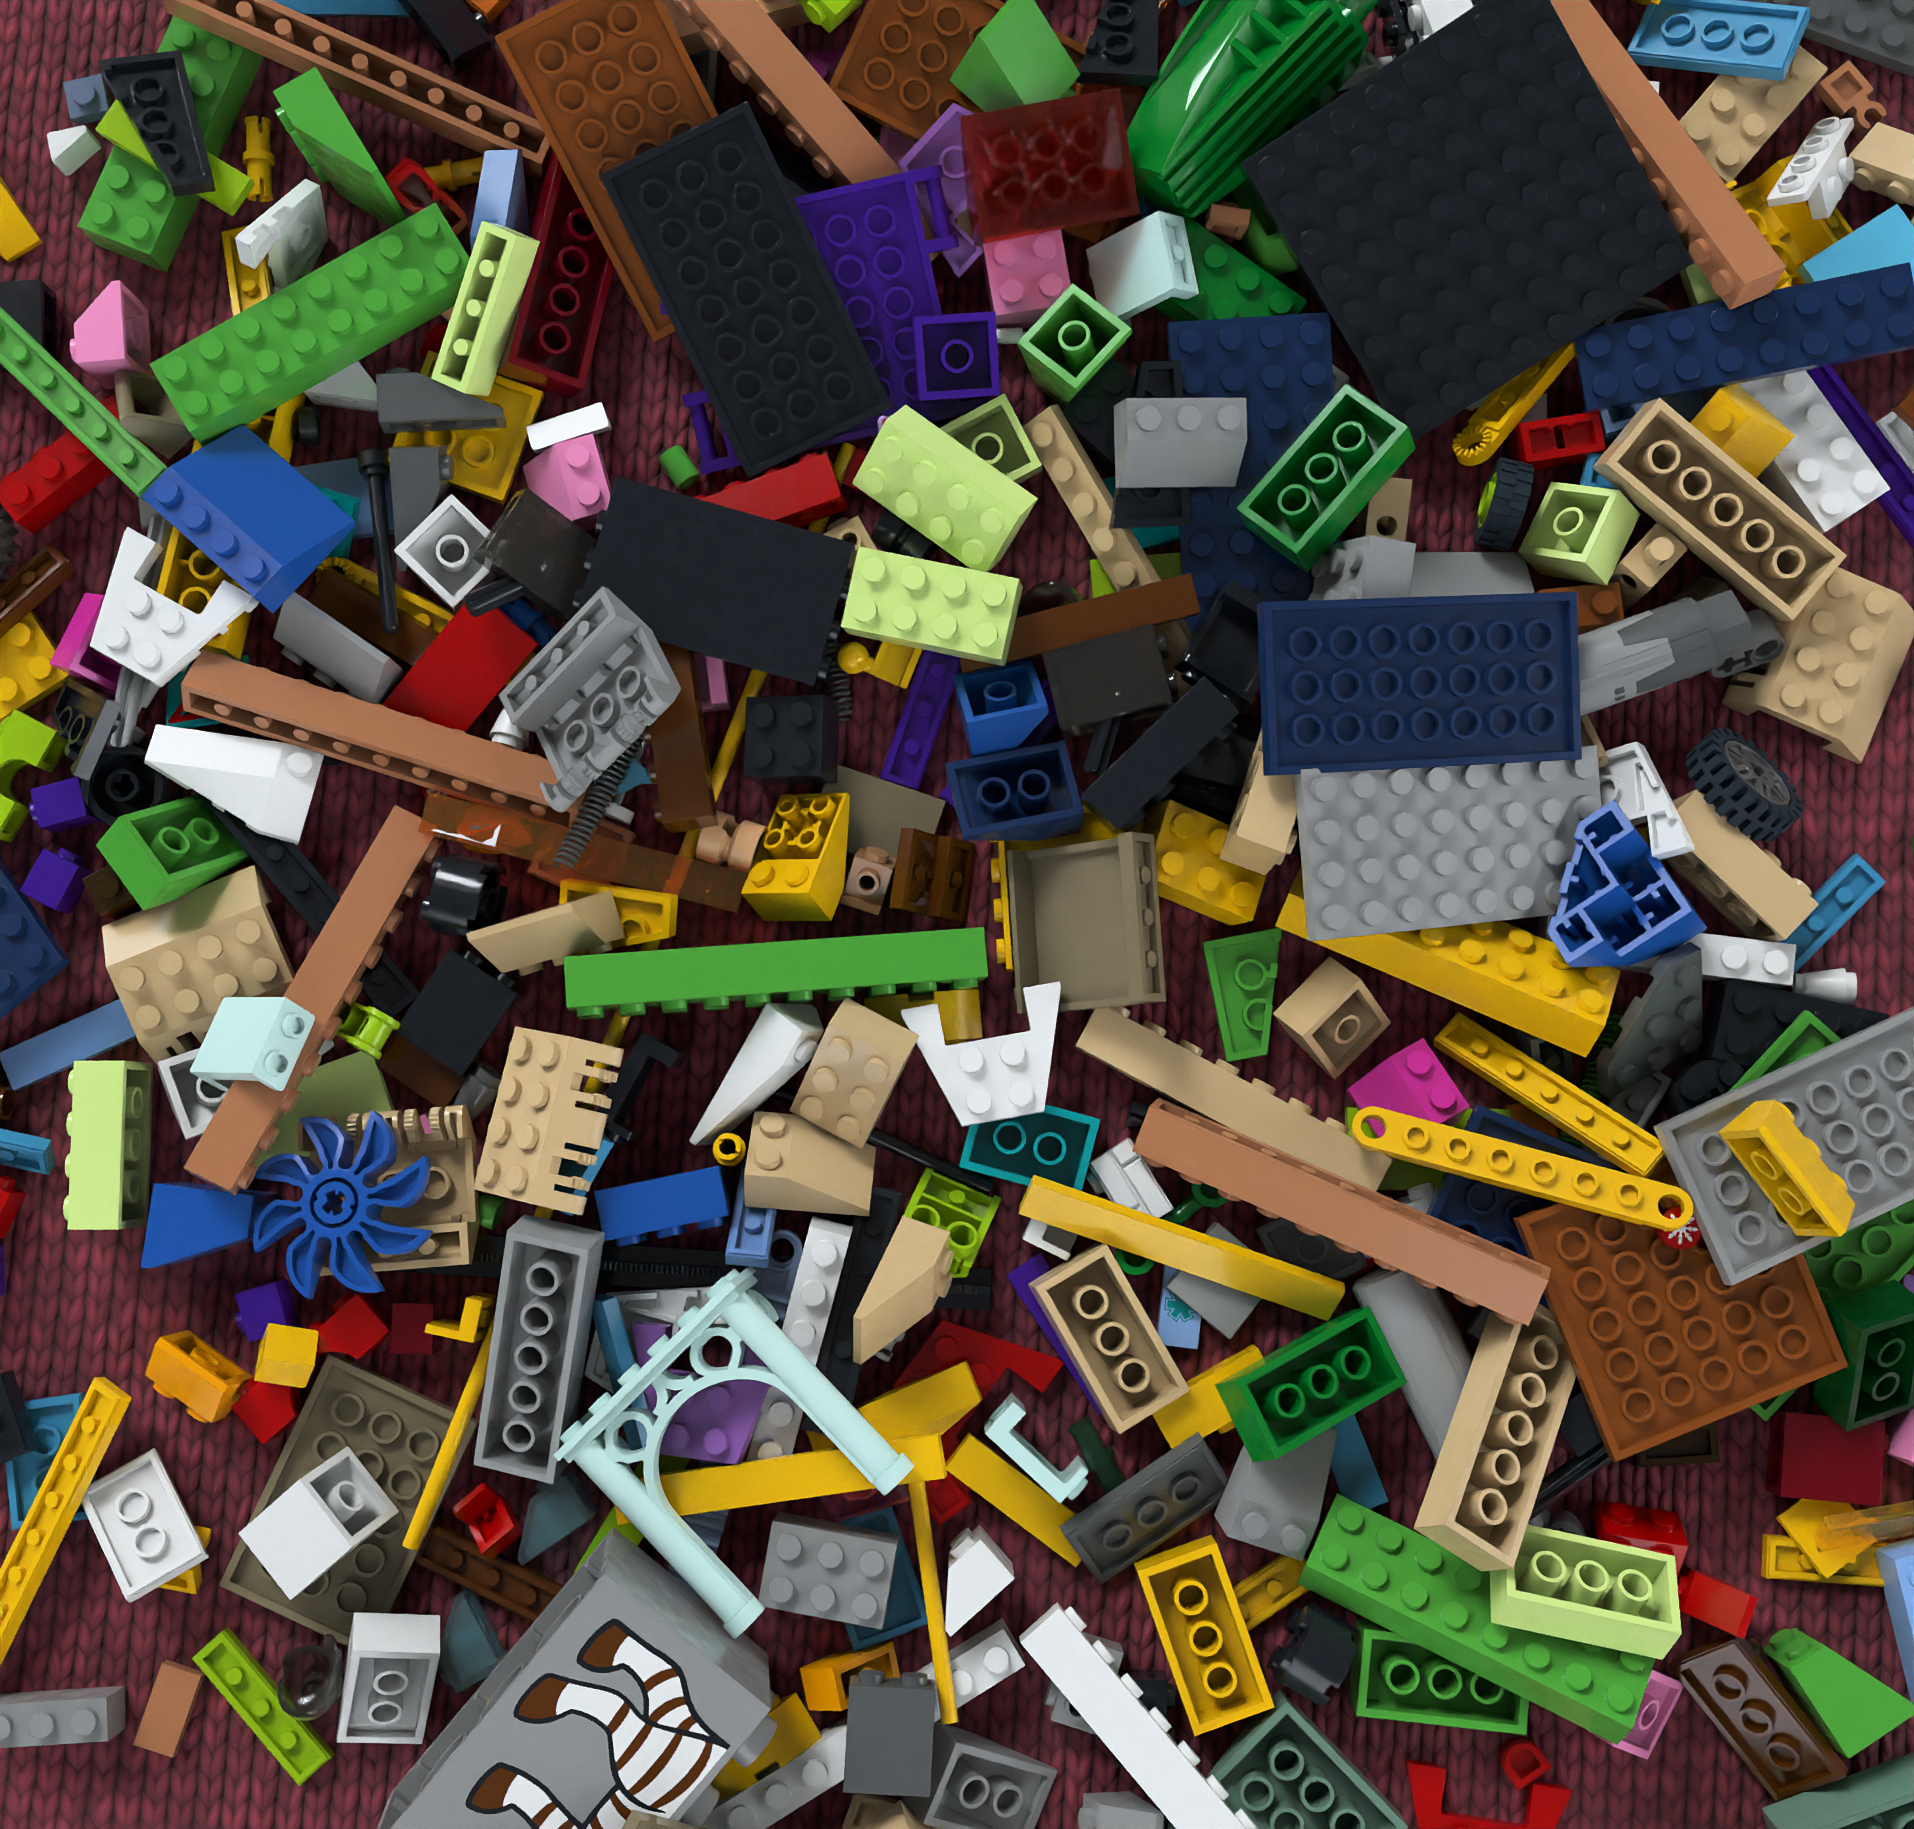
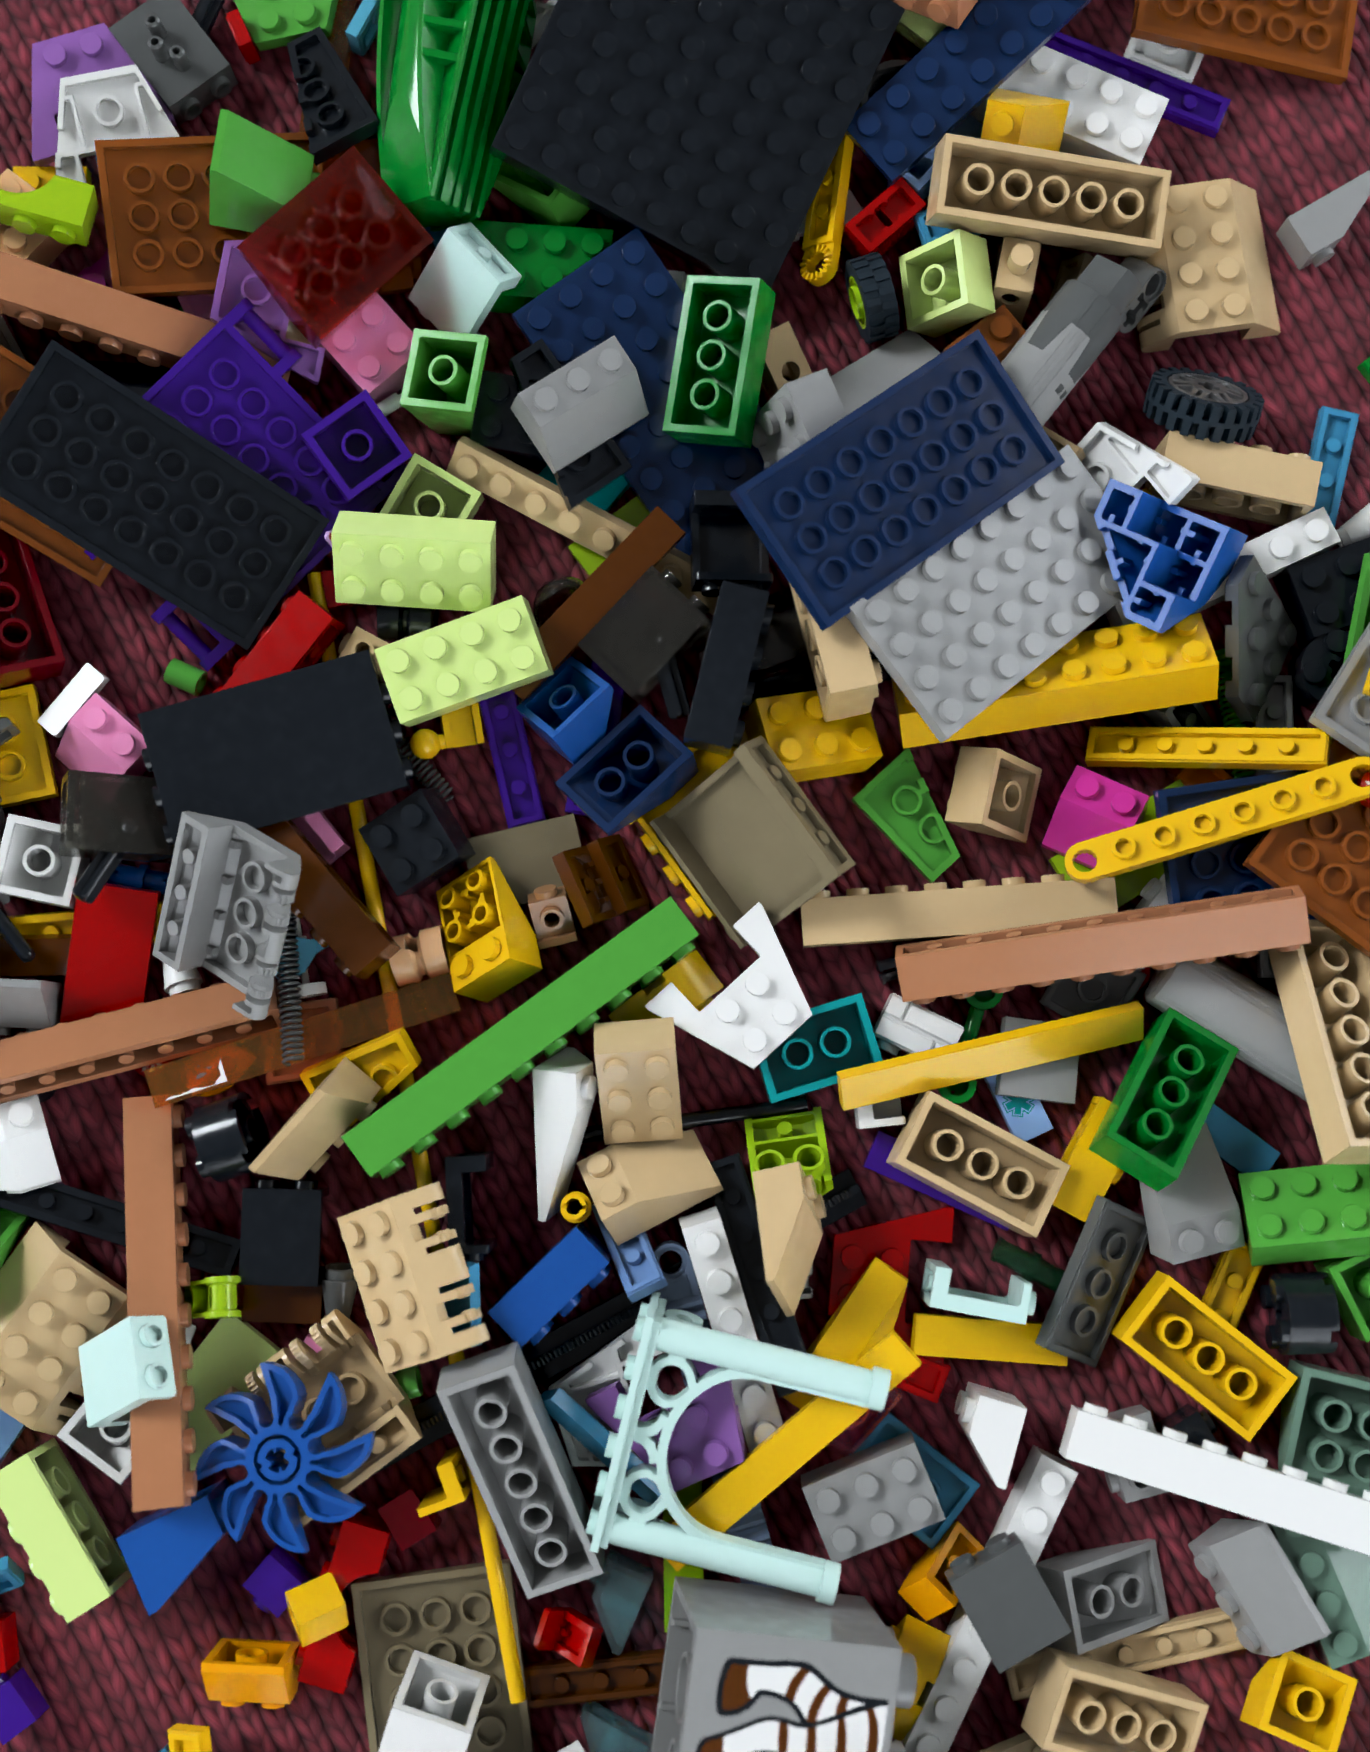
camera: 30 degrees left, 0 degrees up
(933, 1603) = (974, 1472): yellow piece -> none
(1227, 221) = (508, 204): nougat plate -> none

